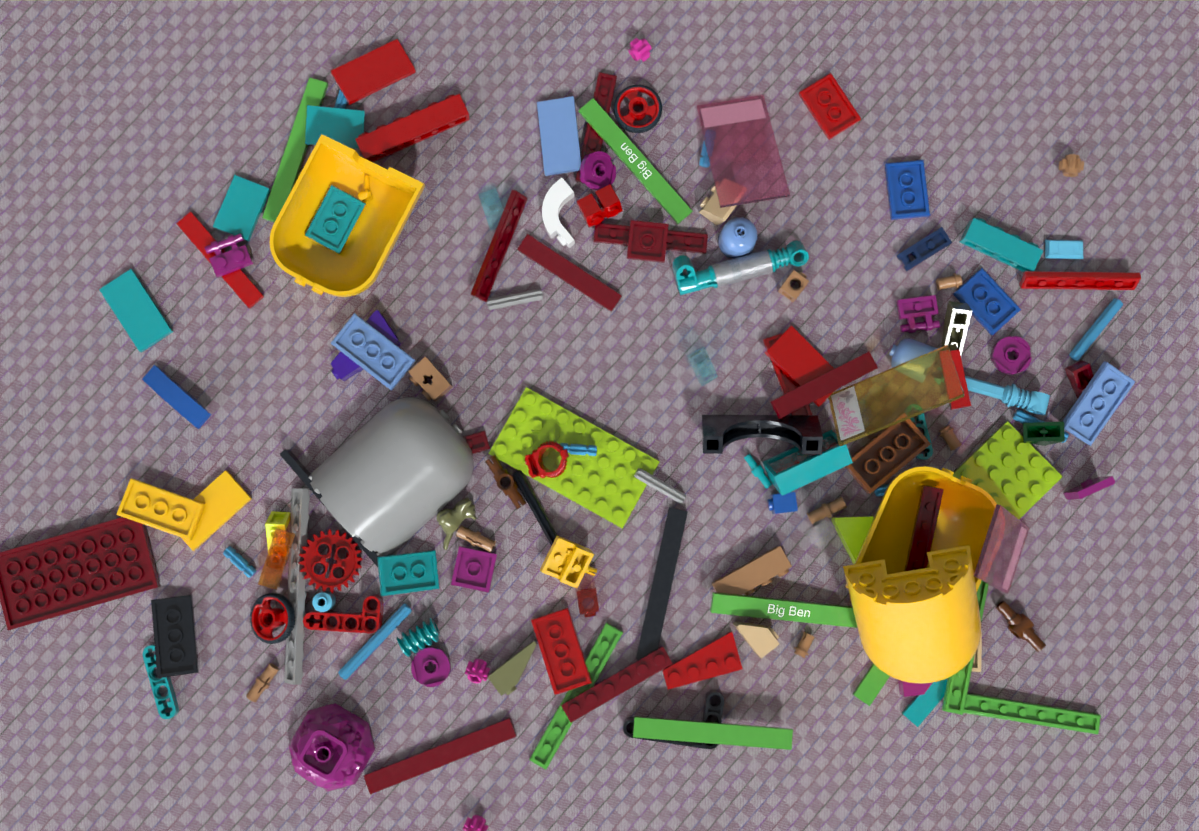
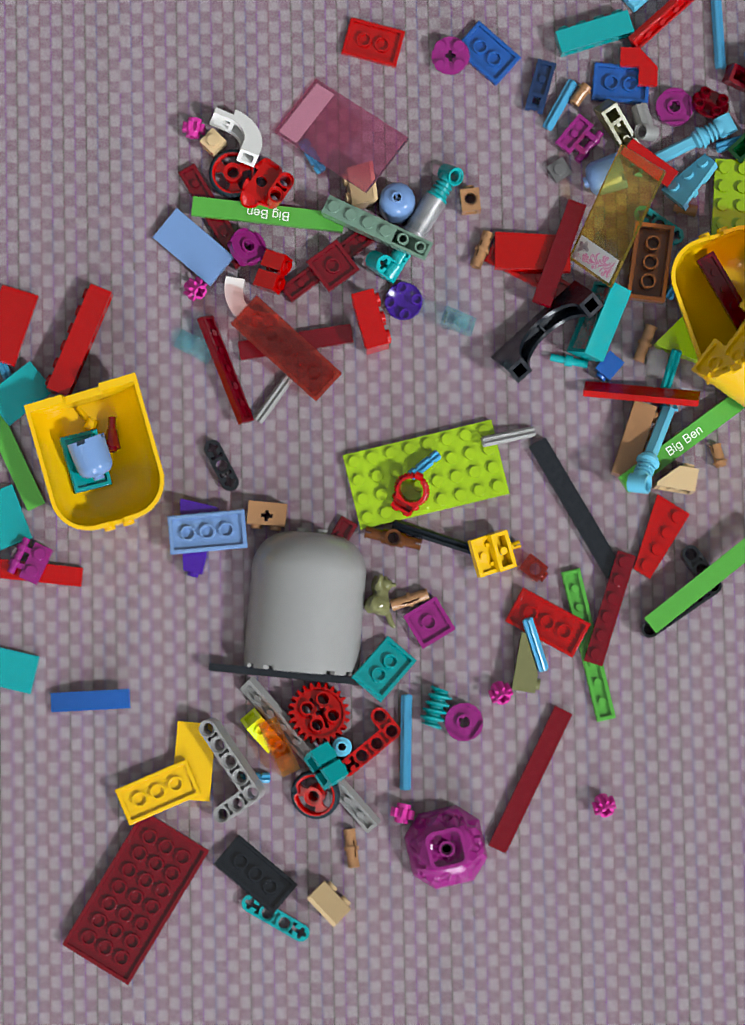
camera: 45 degrees left, 0 degrees up
(205, 709) = (329, 902): none -> tan slope
(228, 543) = (232, 770): none -> light grey beam
(296, 595) = (332, 773): none -> teal piece
(322, 692) = (402, 813): none -> dark pink gear
(338, 218) = (91, 457): none -> medium blue cylinder
(367, 221) = (112, 436): none -> dark red cone
(440, 301) = (219, 450): none -> black beam
(532, 167) = (195, 288): none -> dark pink gear
(536, 659) = (535, 644): none -> dark azure axle
(556, 268) = (286, 347): none -> clear red brick
(637, 136) = (254, 195): none -> red piece
(637, 307) = (371, 321): none -> red brick
(644, 72) = (213, 143): none -> tan brick
(674, 83) = (243, 130): none -> white arch
(676, 315) = (403, 301): none -> dark purple dish
(704, 241) = (375, 228): none -> sand green slope
(745, 602) = (647, 462): none -> medium azure piece
(769, 330) = (481, 249): none -> medium nougat pin
(789, 546) = (641, 393): none -> red tile
(822, 551) = (671, 368): none -> teal axle
(878, 177) = (458, 63): none -> magenta plate
(881, 323) = (559, 170): none -> flat silver plate
(926, 276) = (559, 105): none -> dark azure axle
(969, 420) = (687, 183): none -> medium azure wing
(975, 349) = (644, 126): none -> light grey piece
(1017, 294) = (636, 58): none -> red tile
(1042, 376) = (710, 102): none -> dark red dish

